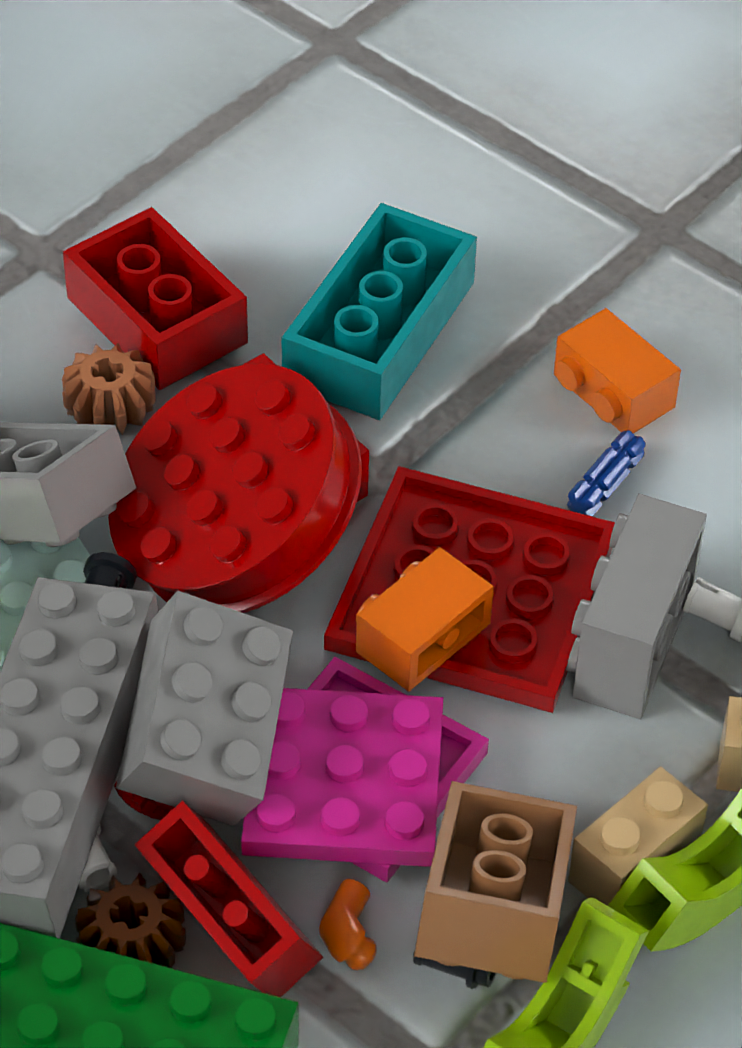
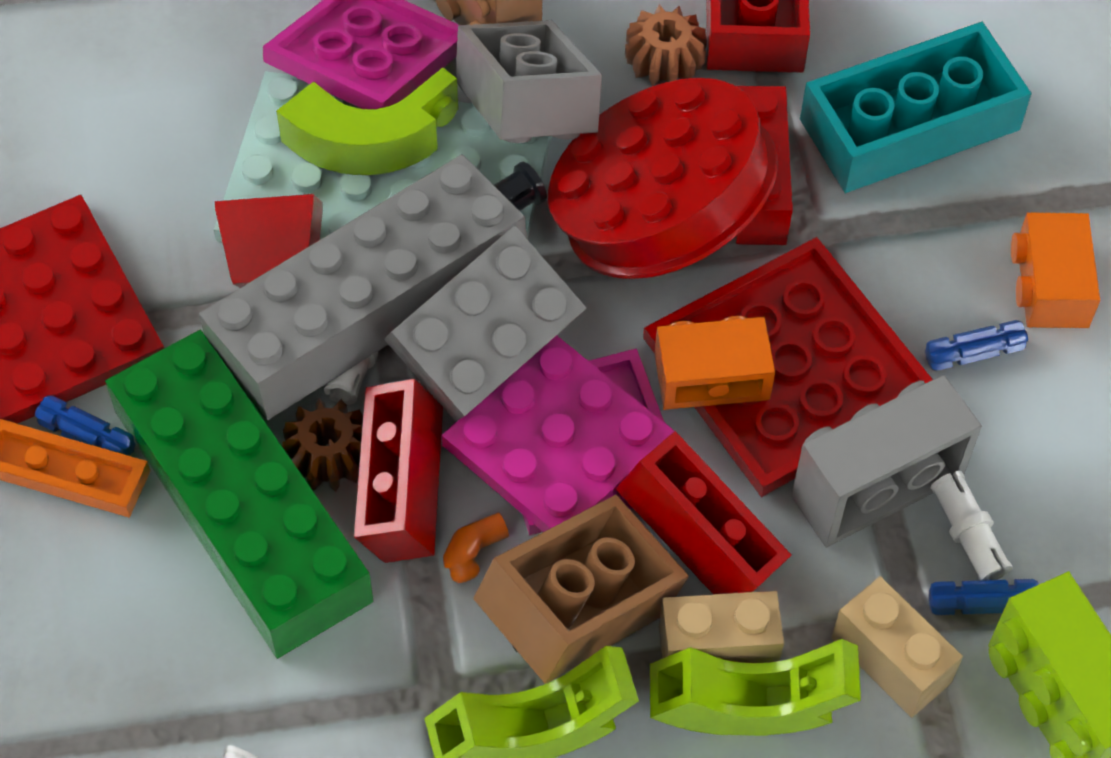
camera: 40 degrees right, 10 degrees up
(541, 751) = (702, 519): none -> red brick

